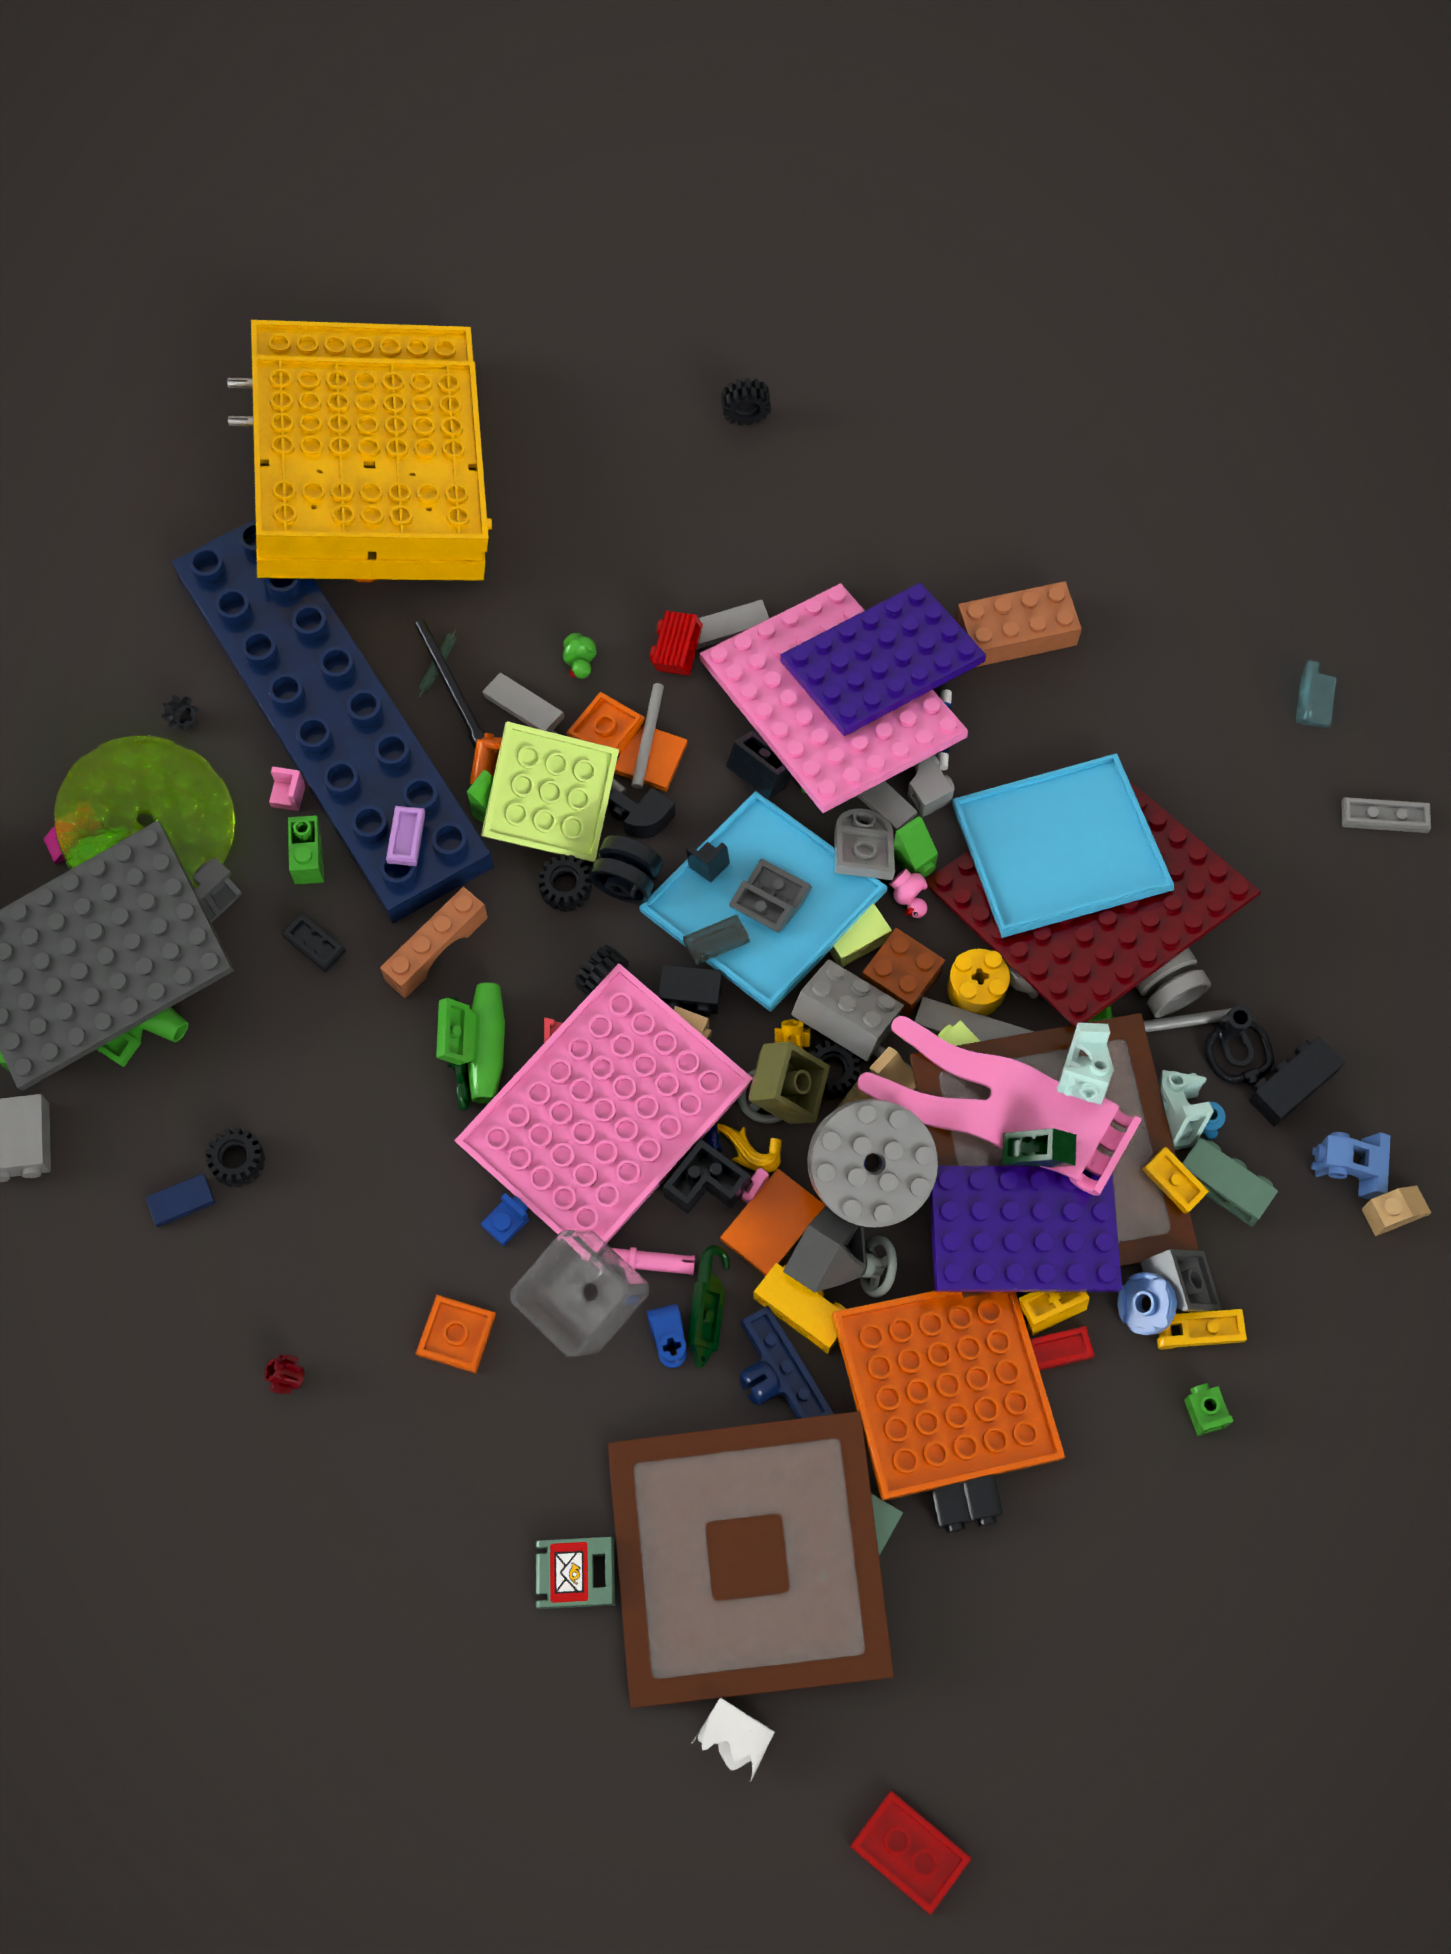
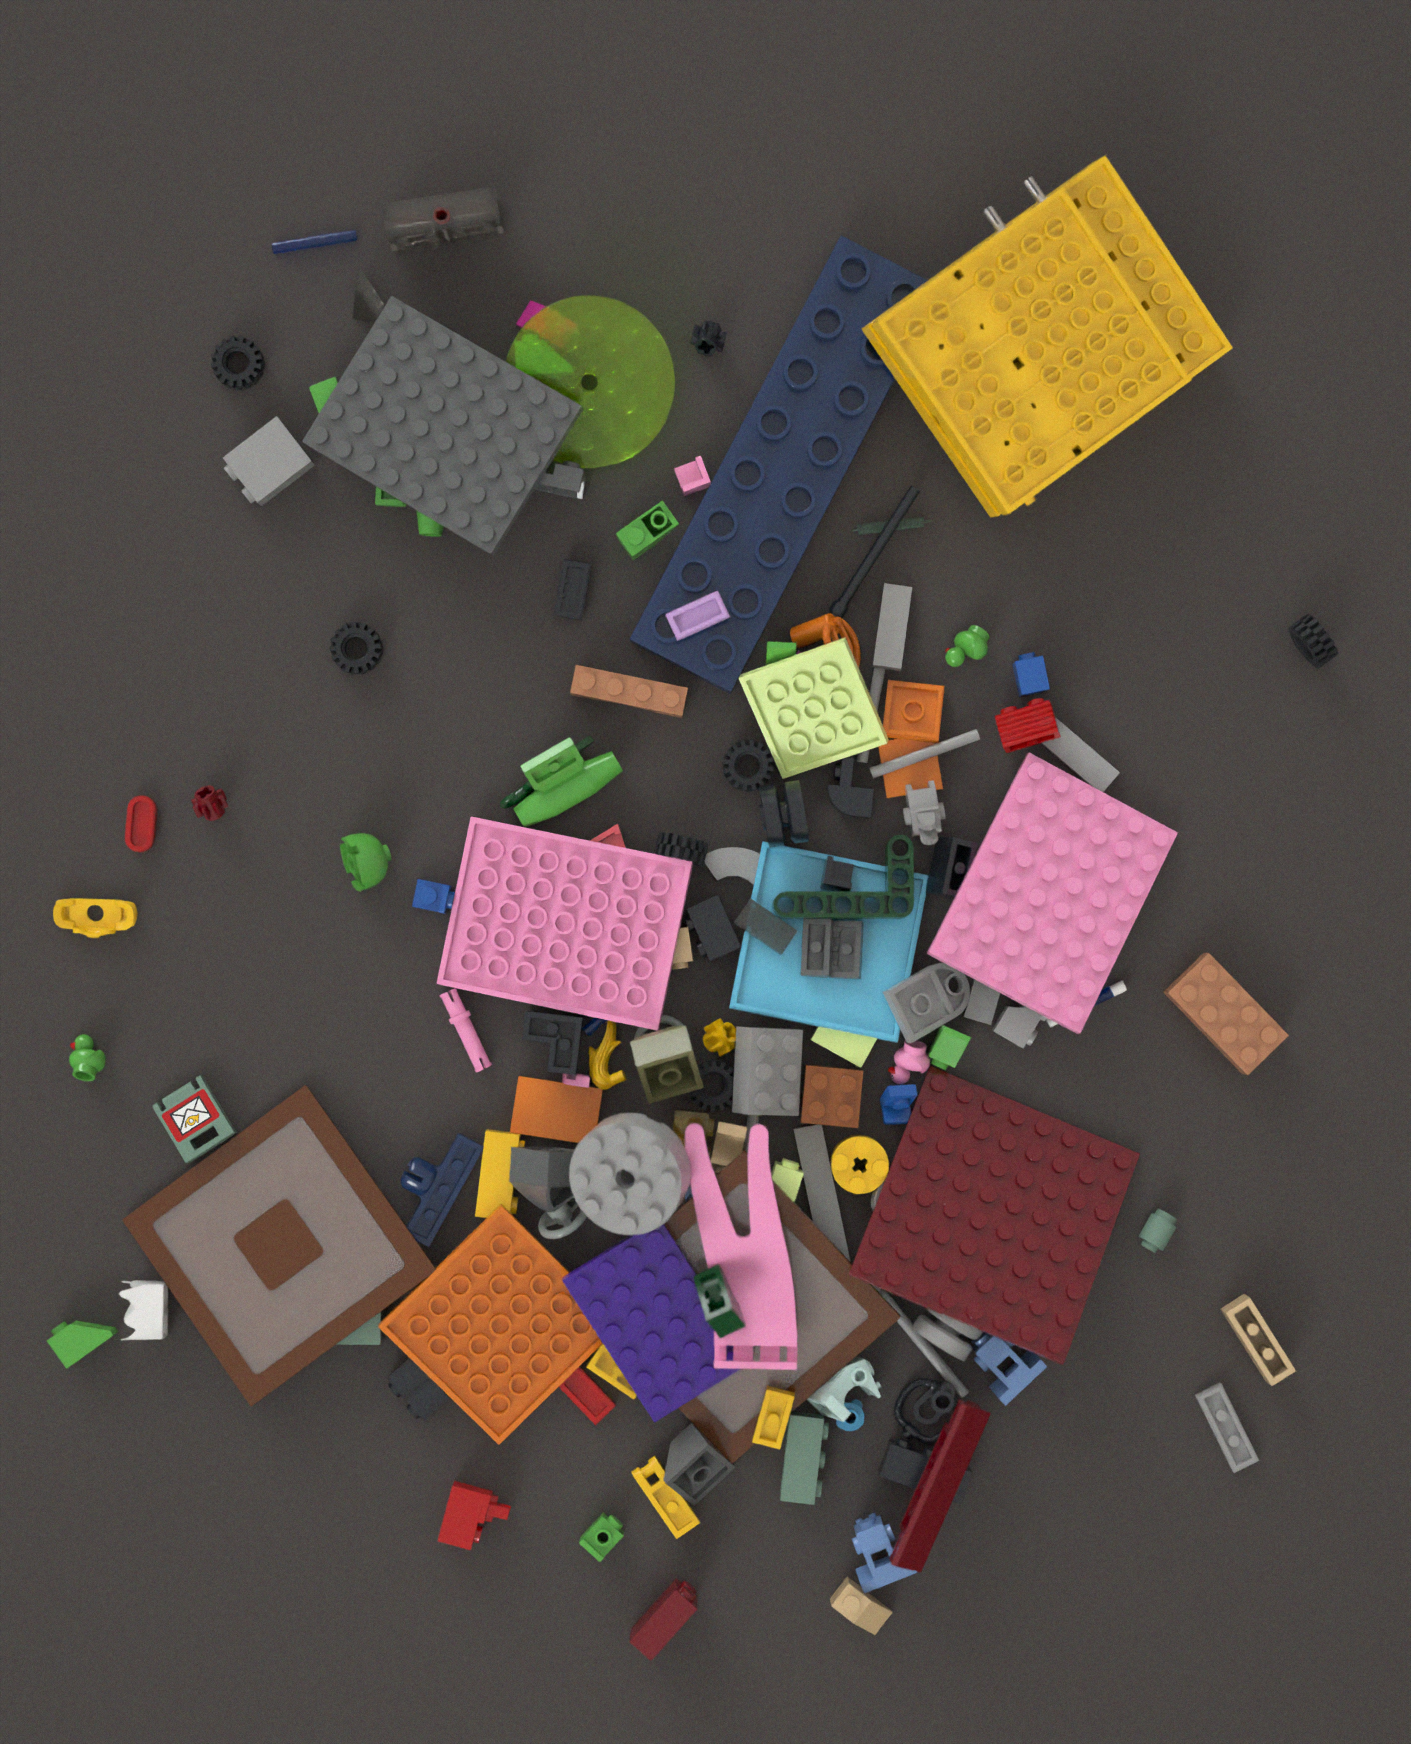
camera: 65 degrees right, 20 degrees up
(180, 1200) = (298, 627): dark blue tile -> none
(260, 1456) = (141, 823): none -> red tile
(302, 1574) = (74, 915): none -> yellow piece
(430, 1260) = (365, 859): none -> bright green cylinder
(450, 1647) = (85, 1060): none -> bright green animal
(456, 1334) = (321, 914): orange tile -> none
(555, 1298) = (379, 996): clear plate -> none
(635, 621) = (1030, 674): none -> blue brick
(643, 943) = (733, 863): none -> light grey tile
(668, 1331) = (419, 1077): blue piece -> none
(696, 759) = (923, 813): none -> light grey hinge
(707, 1307) = (455, 1099): dark green plate -> none
(725, 1828) = (78, 1339): none -> bright green slope
(739, 852) = (857, 899): none -> dark green beam
(882, 658) = (1111, 919): dark purple plate -> none
(910, 1852) = (142, 1483): red tile -> none
(939, 922) = (896, 1103): none -> blue bracket
(1061, 845) = (1022, 1168): medium azure tile -> none
(1085, 1075) = (826, 1300): light aqua tile -> none
(1116, 1531) = (464, 1511): none -> red hinge
(1162, 1303) = (670, 1452): medium blue tile -> none
(1178, 775) = (1157, 1231): none -> sand green brick
(1249, 960) = (992, 1352): none -> medium blue tile
(1315, 697) = (1310, 1311): clear light blue panel -> none
(1316, 1063) = (938, 1485): none -> dark red slope
(1320, 743) = (1258, 1339): none -> tan brick
(1320, 1390) = (664, 1618): none -> dark red brick

